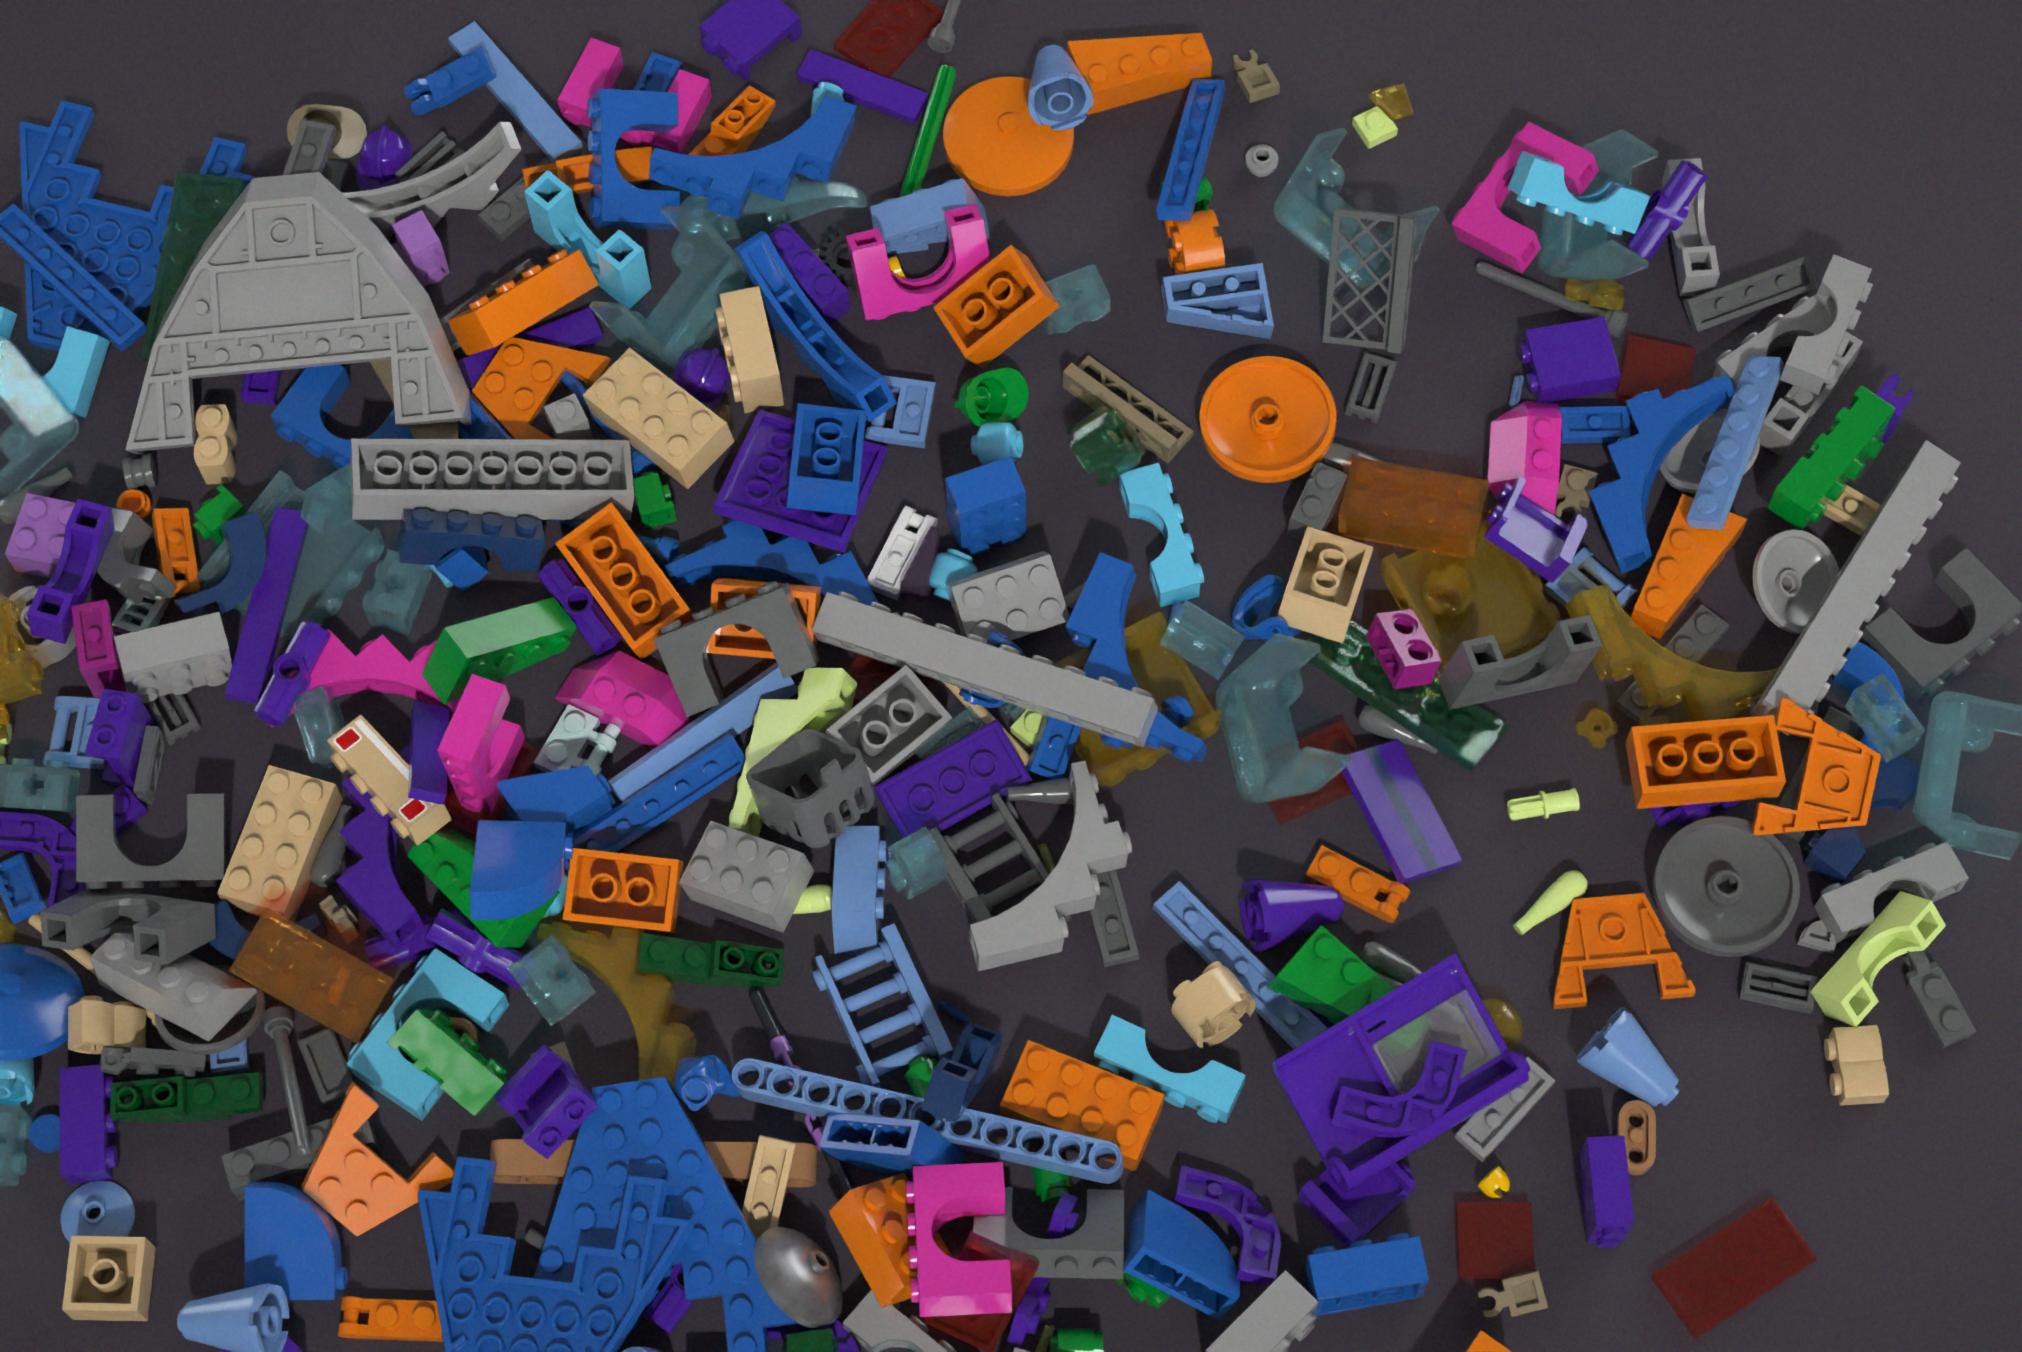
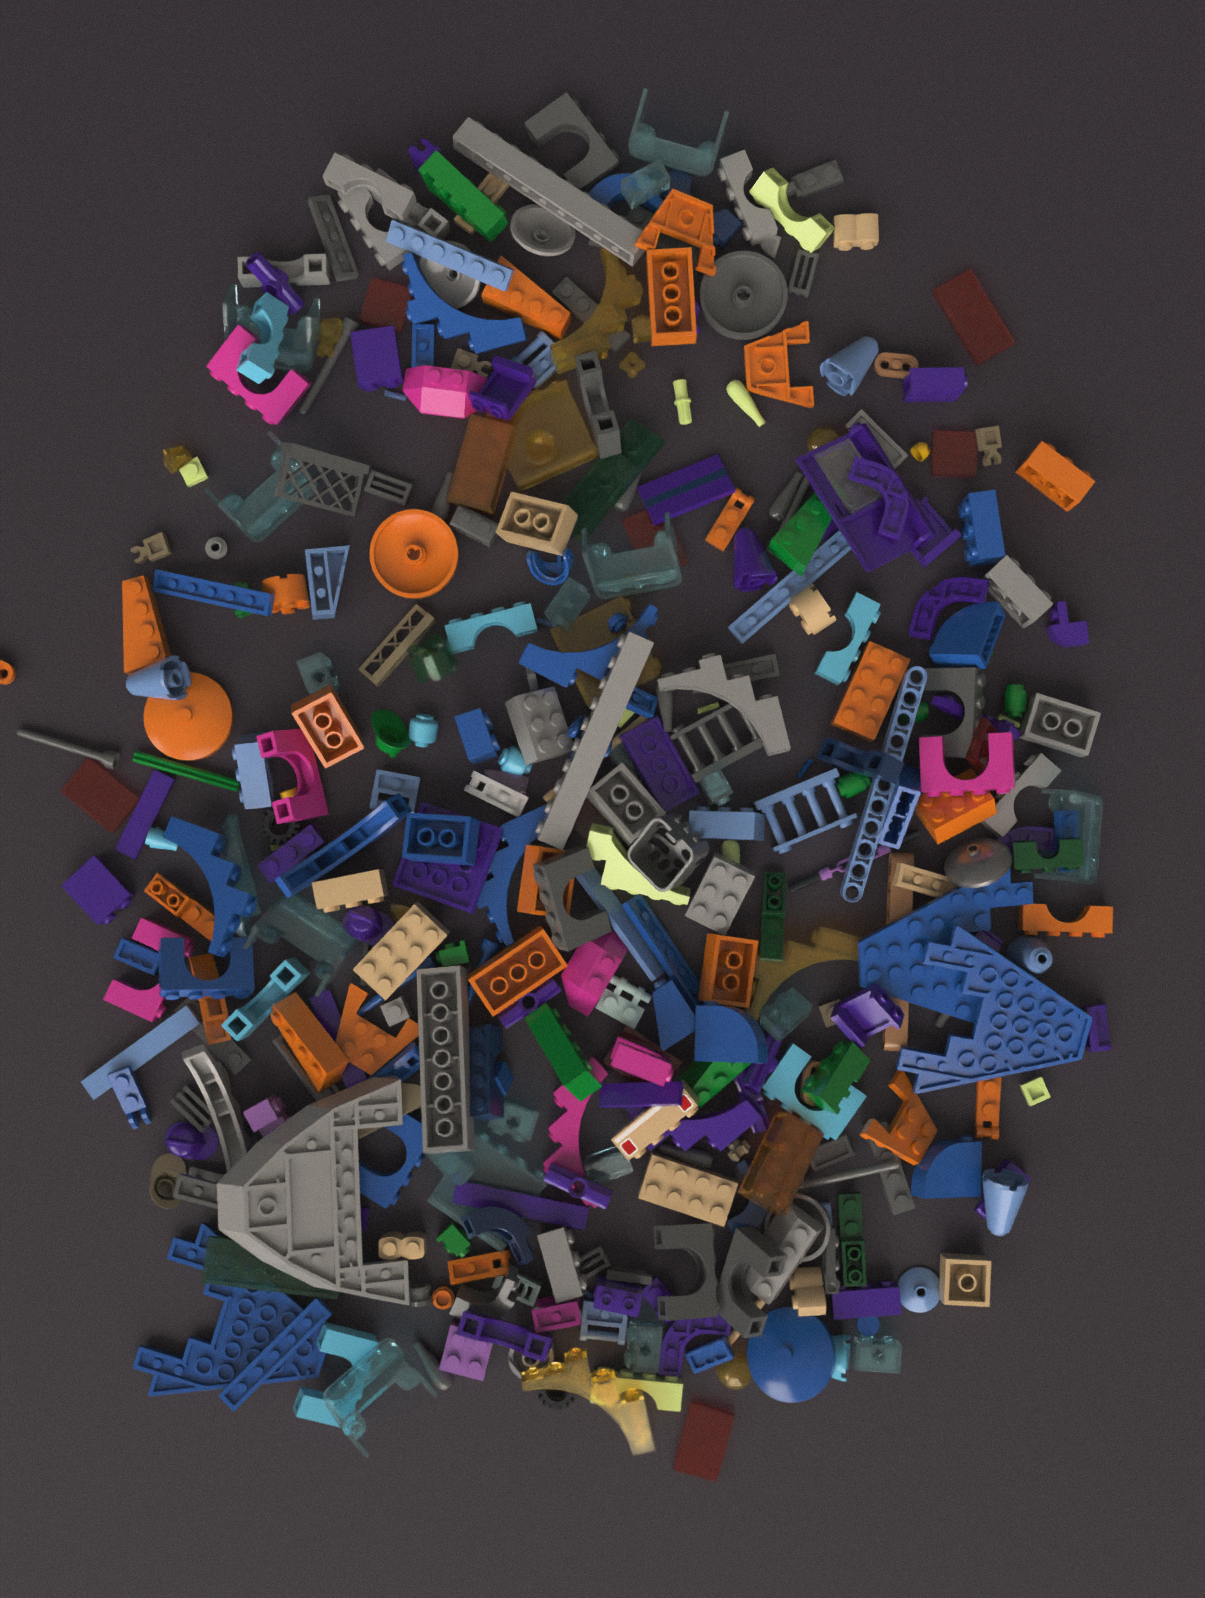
camera: 90 degrees left, 20 degrees up
(701, 1078) = (855, 922): blue animal -> none
(1403, 648) = (582, 482): magenta brick -> none

